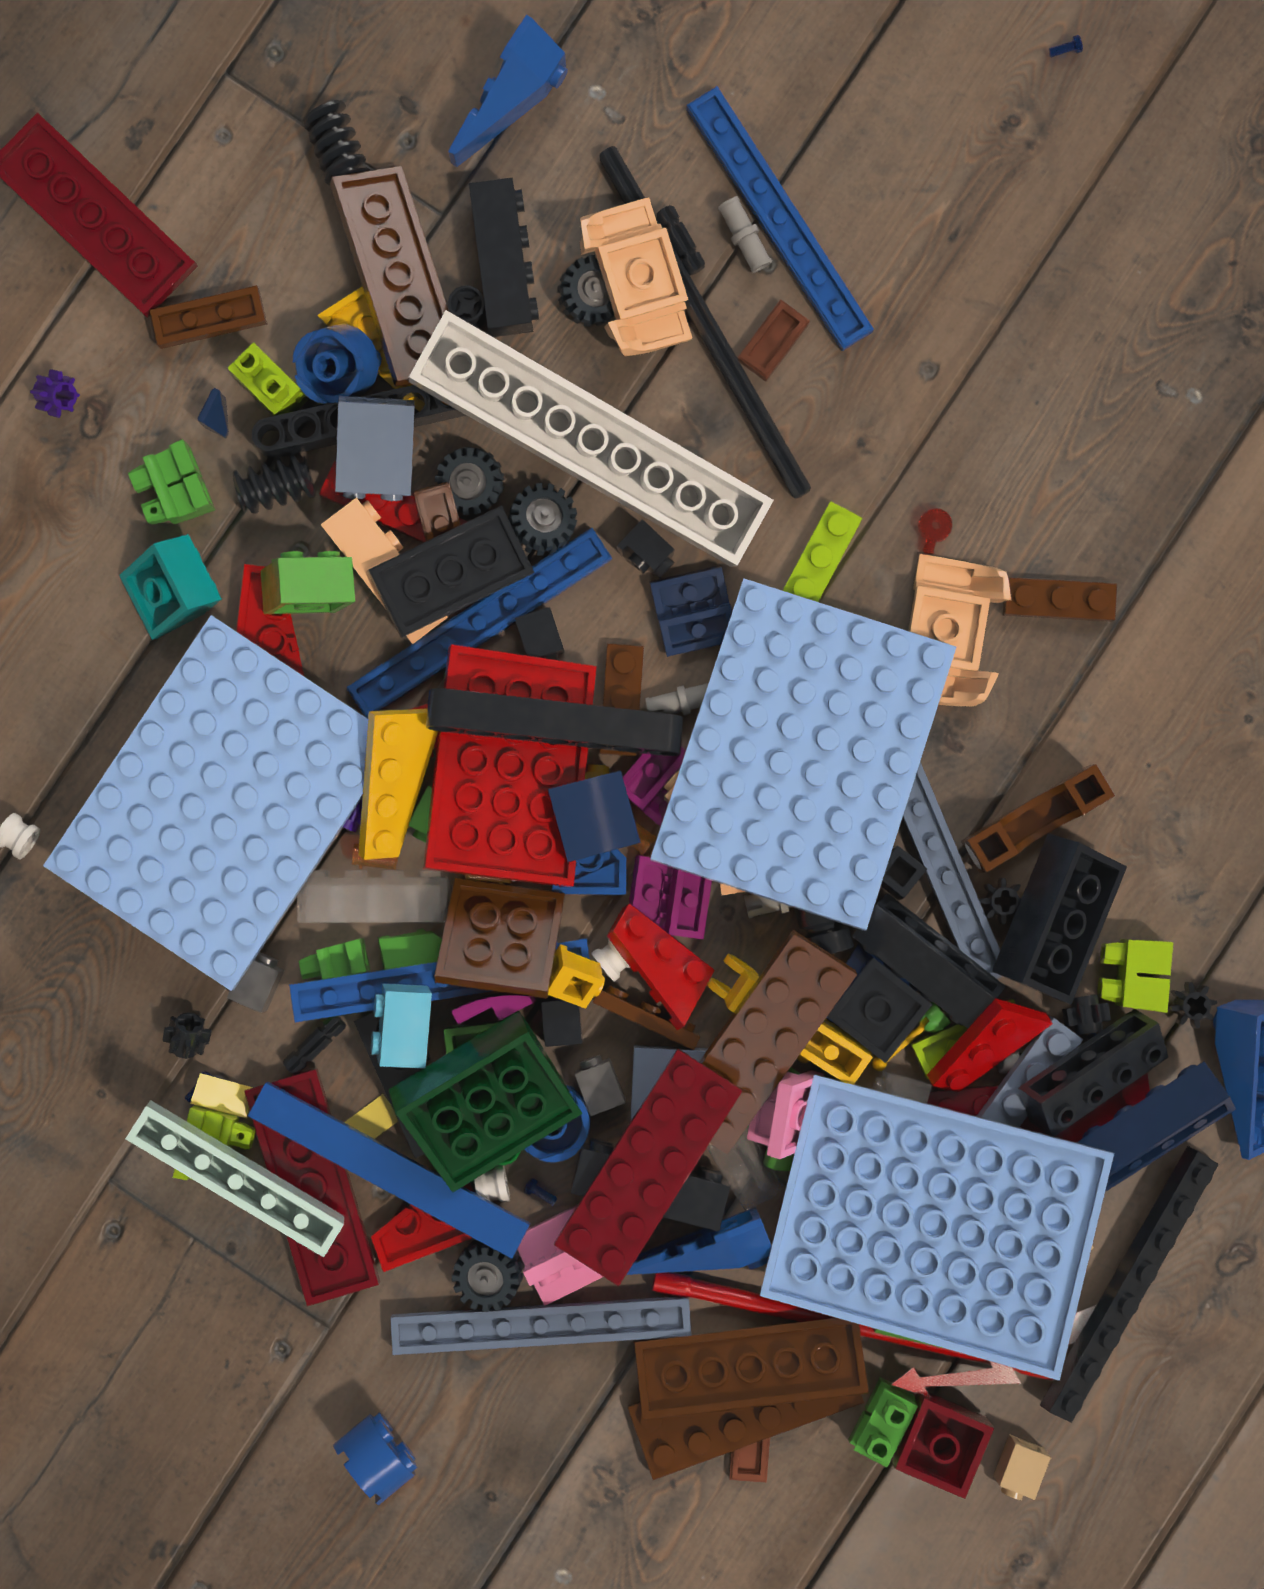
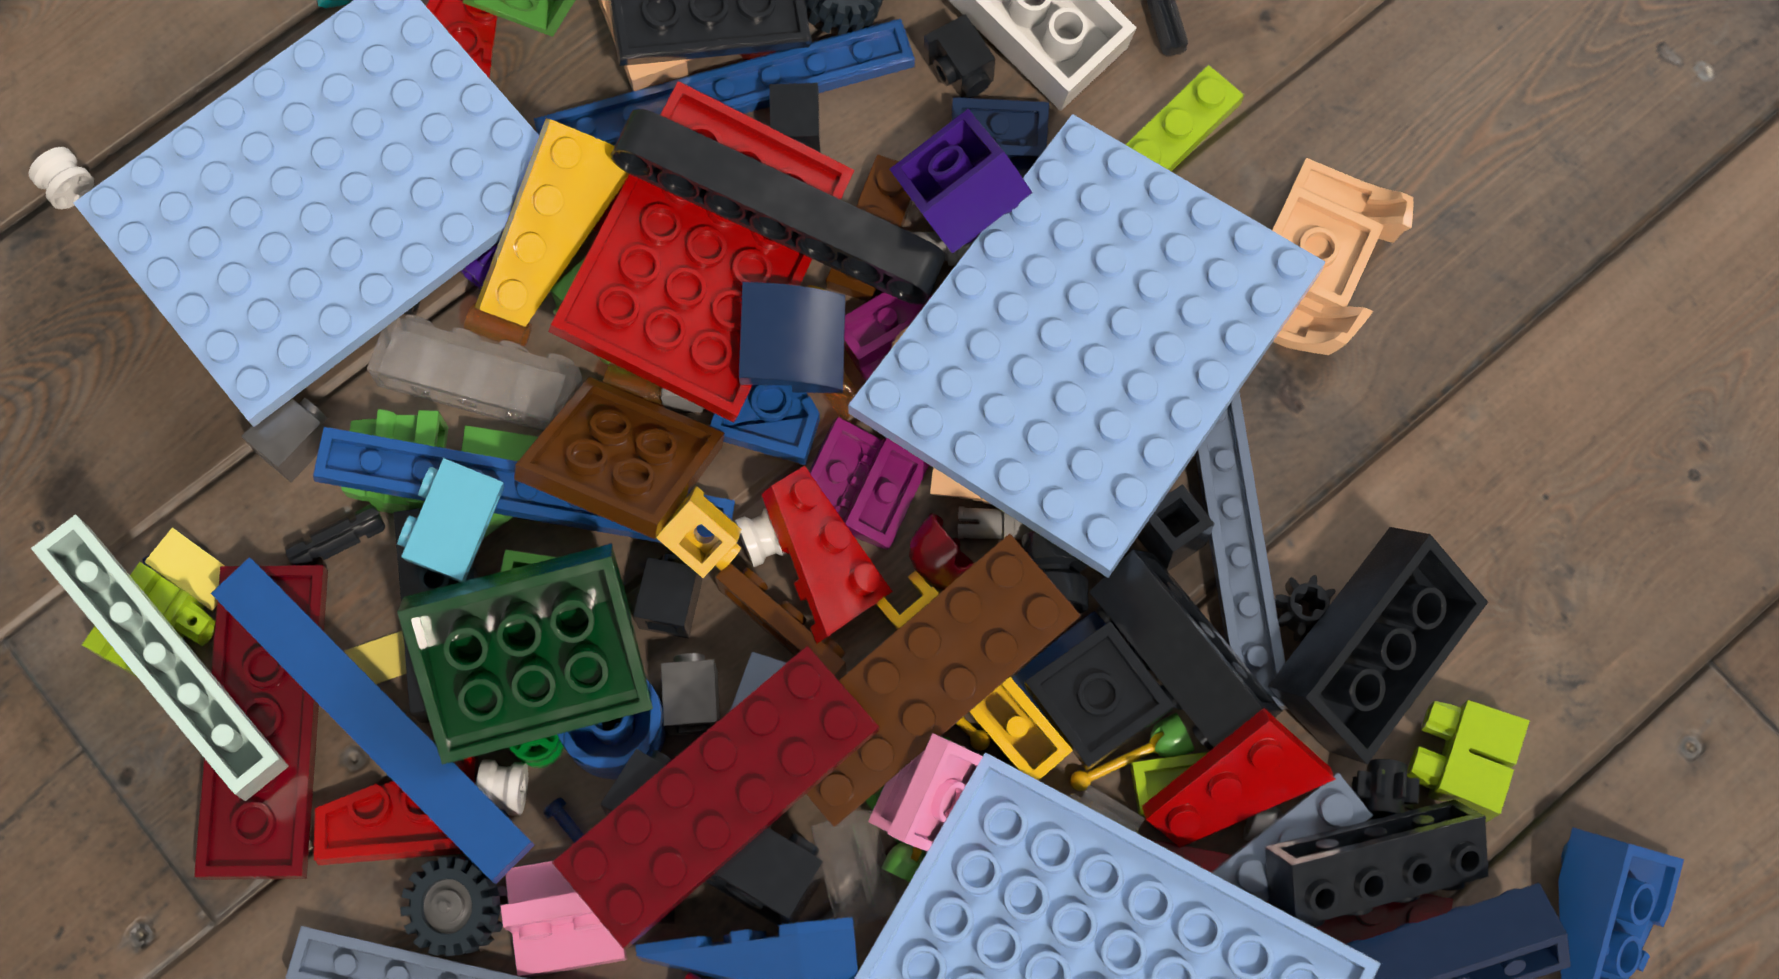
camera: 20 degrees right, 15 degrees down
(186, 1035) = (173, 475): black gear -> none
(502, 1004) = (573, 533): magenta slope -> none
(678, 661) = (961, 181): none -> dark purple brick
(743, 940) = (937, 554): none -> dark red hair
(931, 534) = (1329, 140): clear red piece -> none
(1037, 817) = (1340, 523): reddish brown arch -> none
(1061, 599) = (1475, 259): reddish brown plate -> none
(1201, 1001) = (1553, 820): black gear -> none

